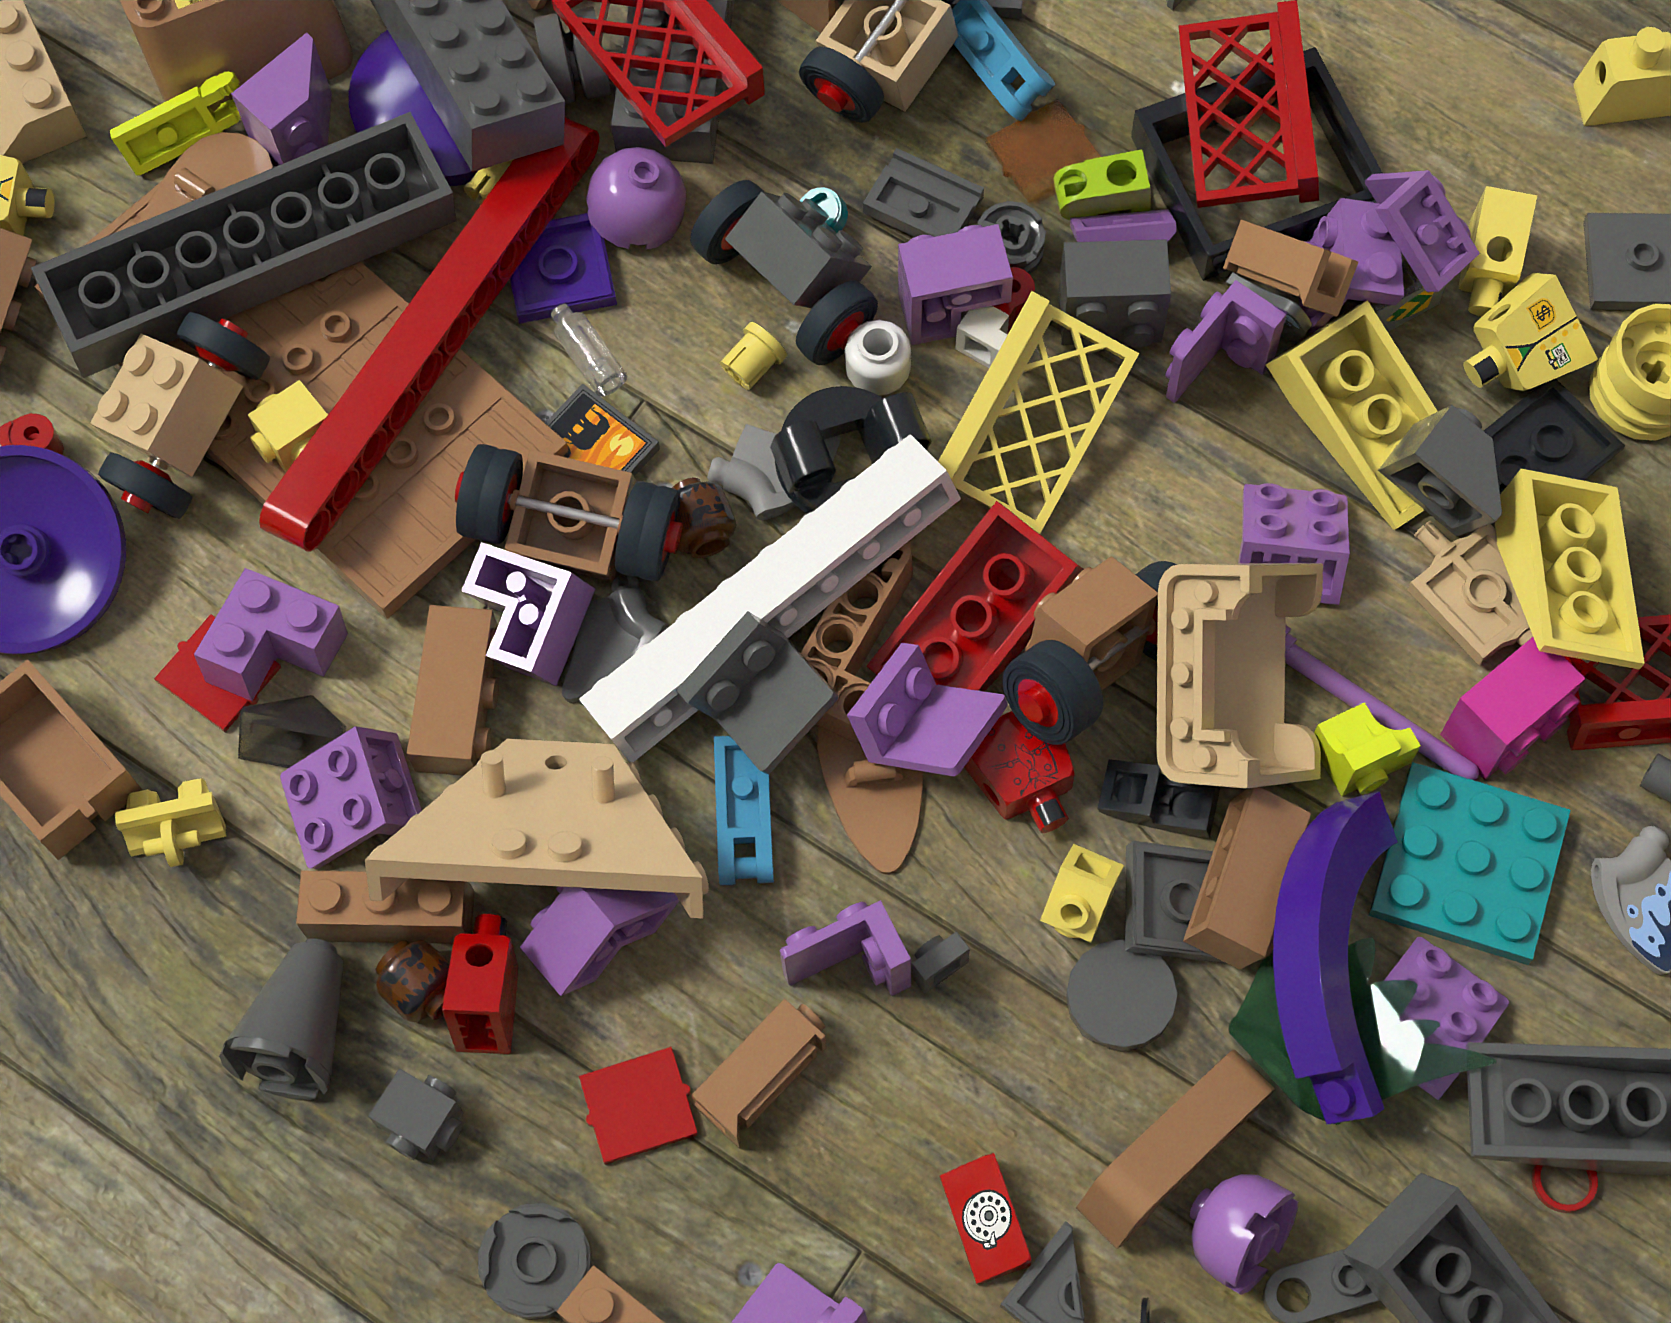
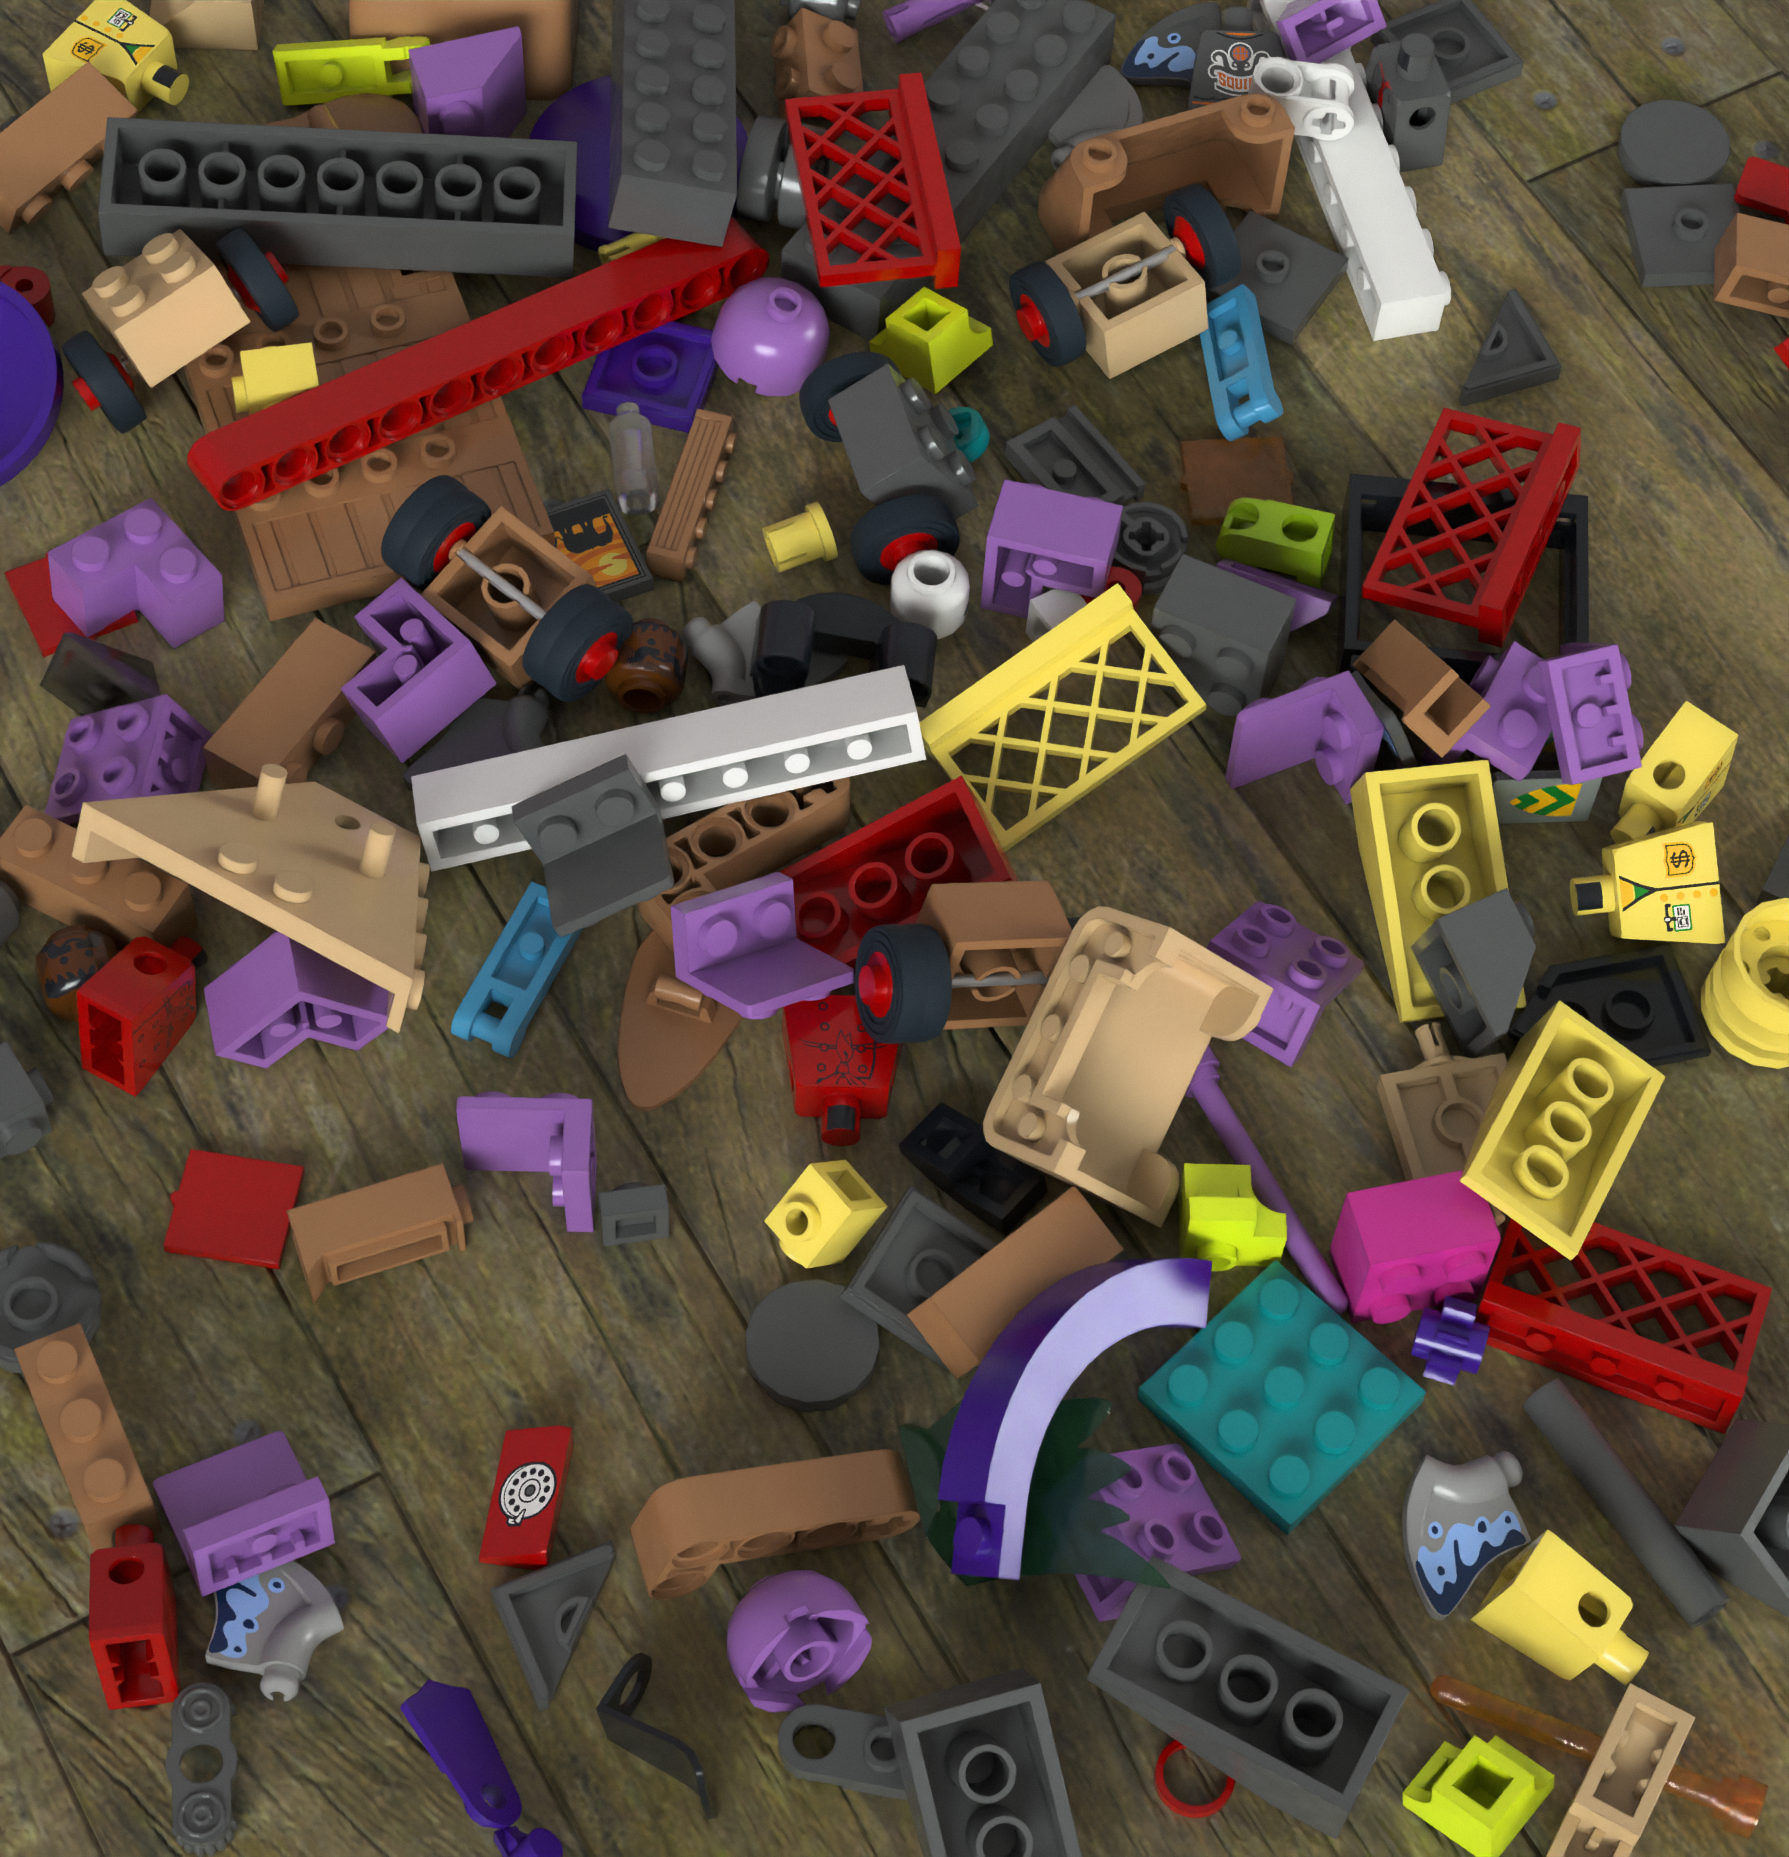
camera: 20 degrees right, 10 degrees down
(649, 358) = (691, 495): none -> medium nougat piece
(758, 146) = (932, 339): none -> neon yellow brick
(1569, 763) = (1450, 1340): none -> dark purple gear

